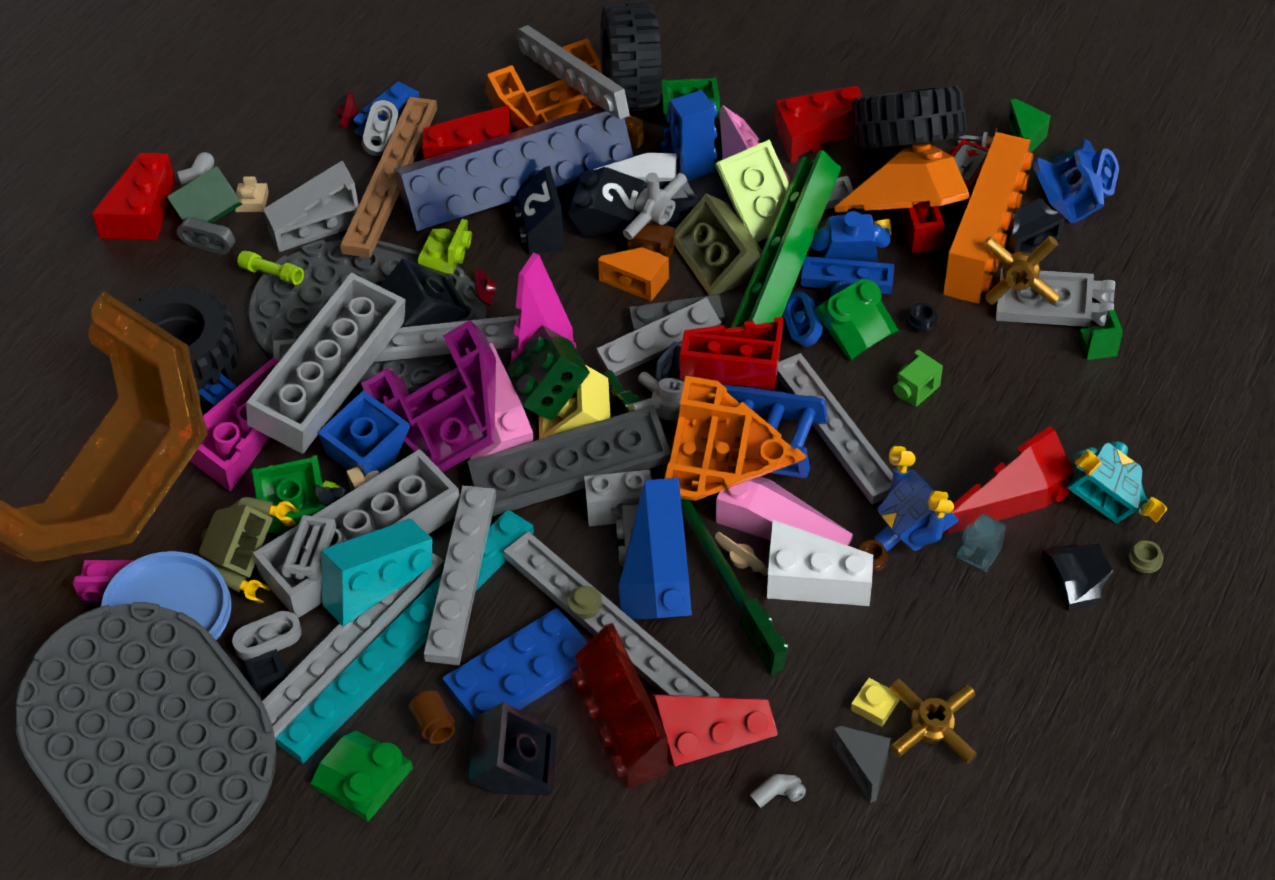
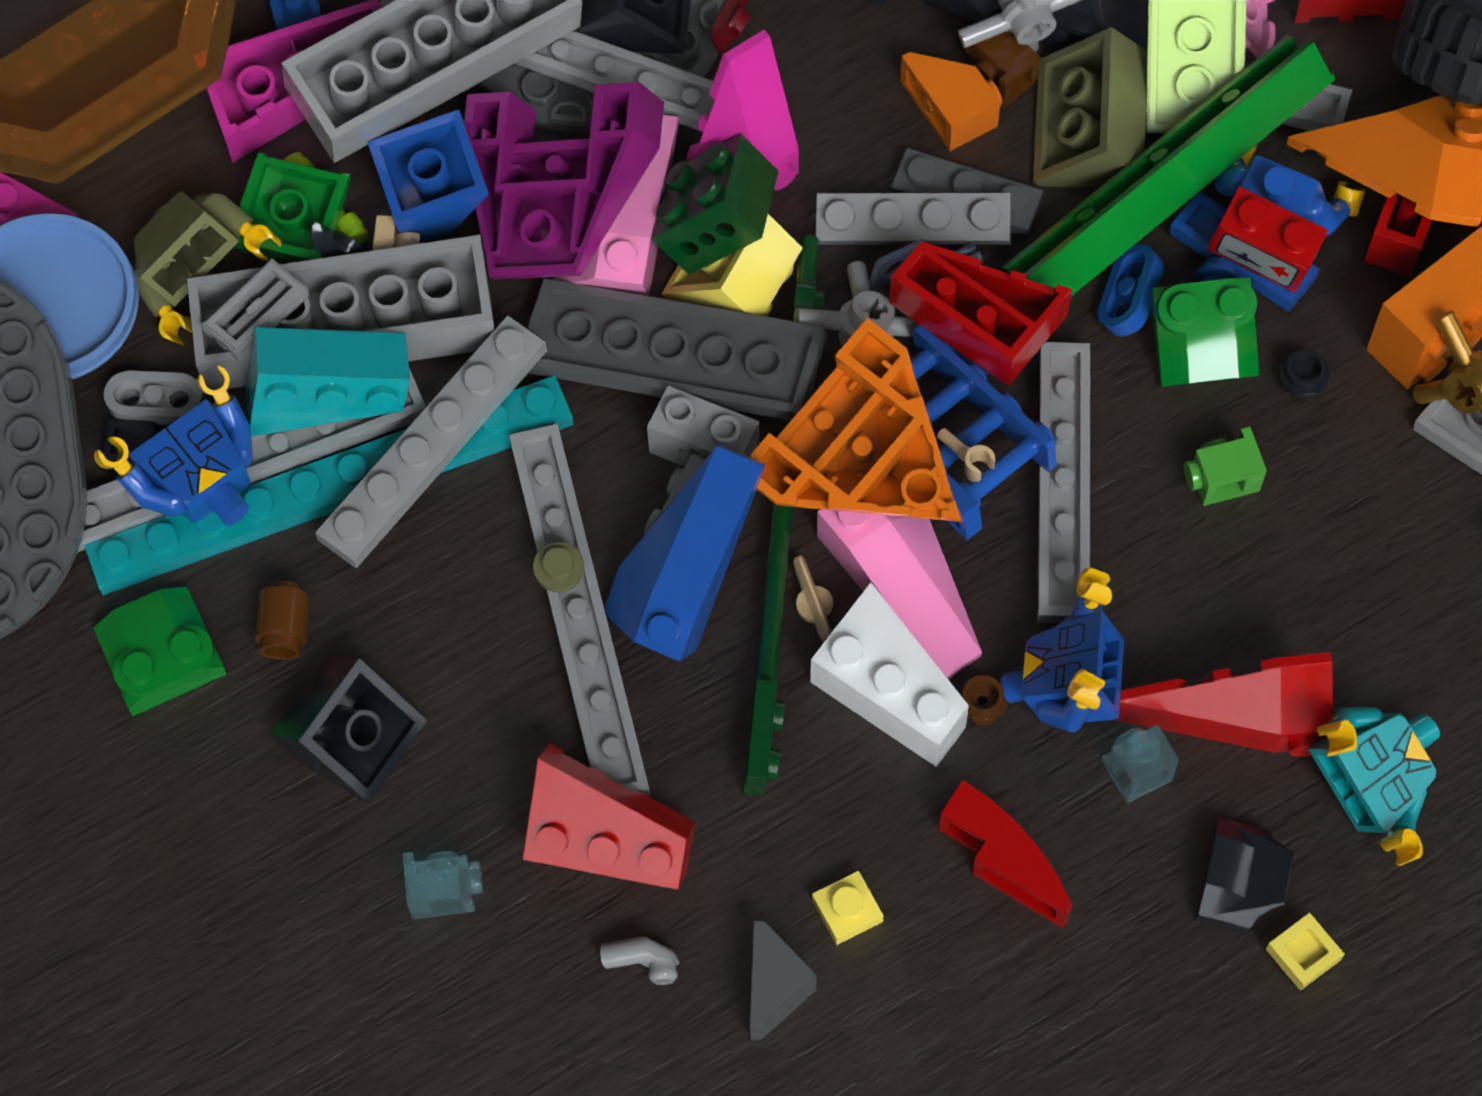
camera: 30 degrees right, 15 degrees up
(322, 650) = (193, 462): none -> blue torso
(518, 667) = (435, 611): blue plate -> none
(621, 709) = (511, 737): clear red slope -> none
(630, 811) = (441, 884): none -> clear light blue brick
(789, 429) = (968, 455): none -> tan hand
(862, 256) = (1267, 239): none -> red brick
(932, 721) = (908, 964): pearl gold bar -> none
(946, 626) = (1005, 853): none -> red slope
(1139, 593) = (1305, 951): none -> light yellow plate
(1146, 557) = (1355, 904): olive plate -> none

